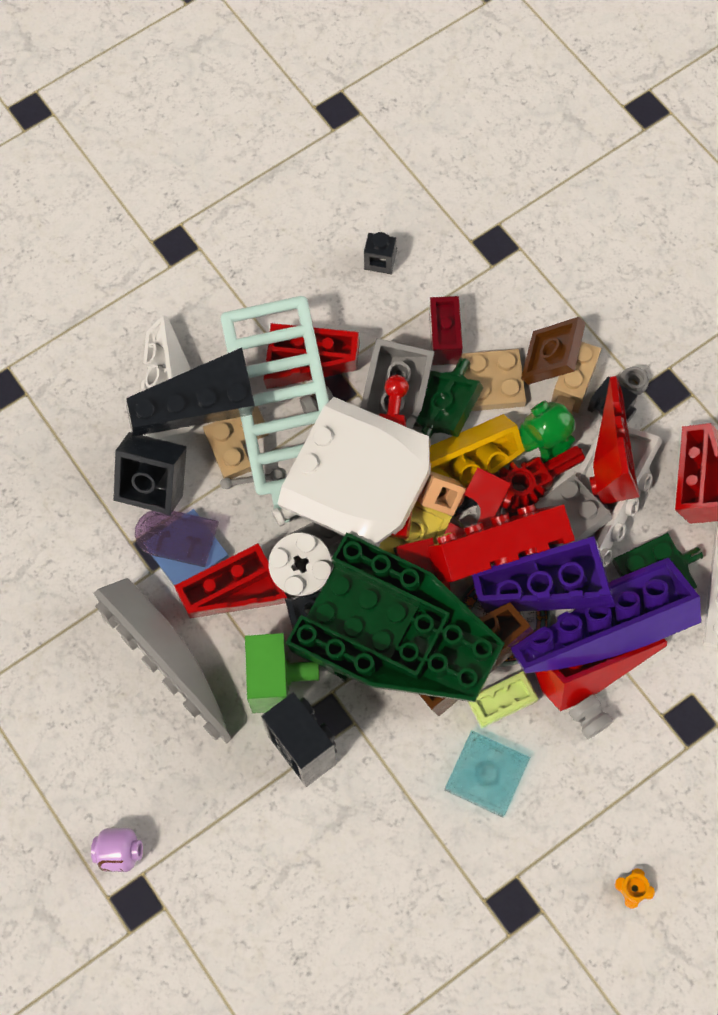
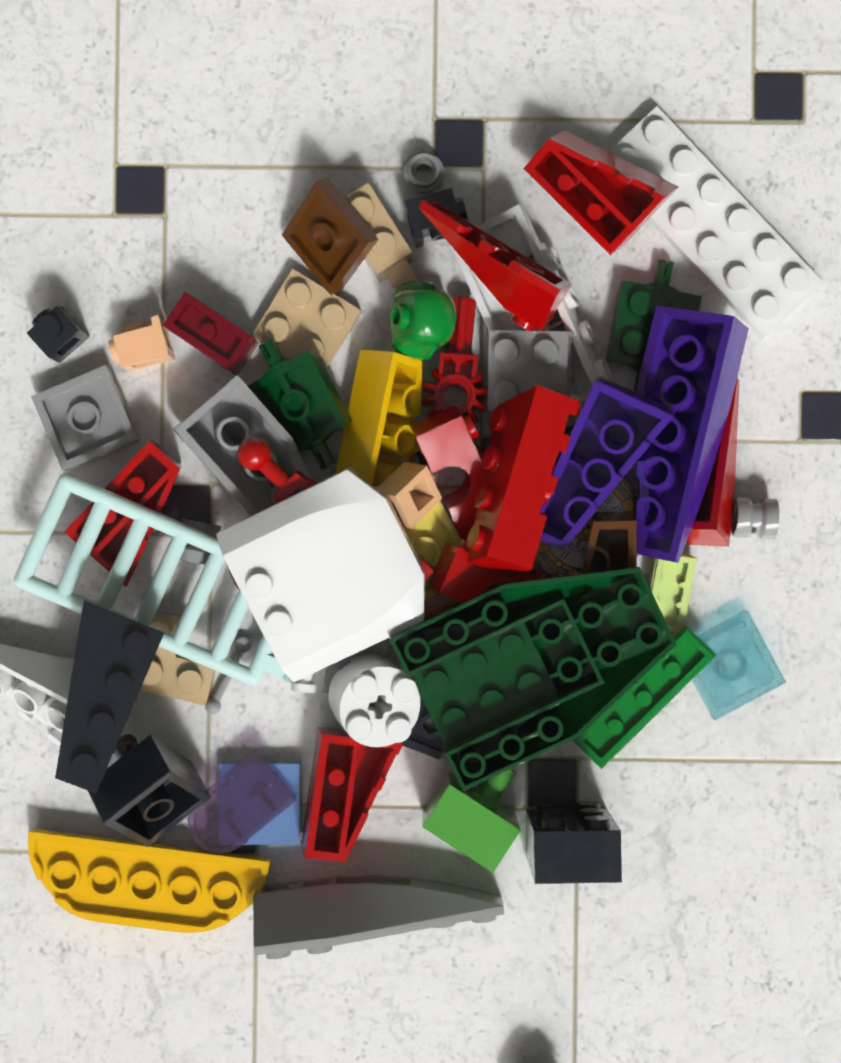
camera: 55 degrees left, 20 degrees up
(90, 517) = (142, 884): none -> yellow plate
(344, 299) = (85, 418): none -> light grey plate
(409, 301) = (142, 345): none -> light nougat brick
(426, 730) = (646, 699): none -> green tile

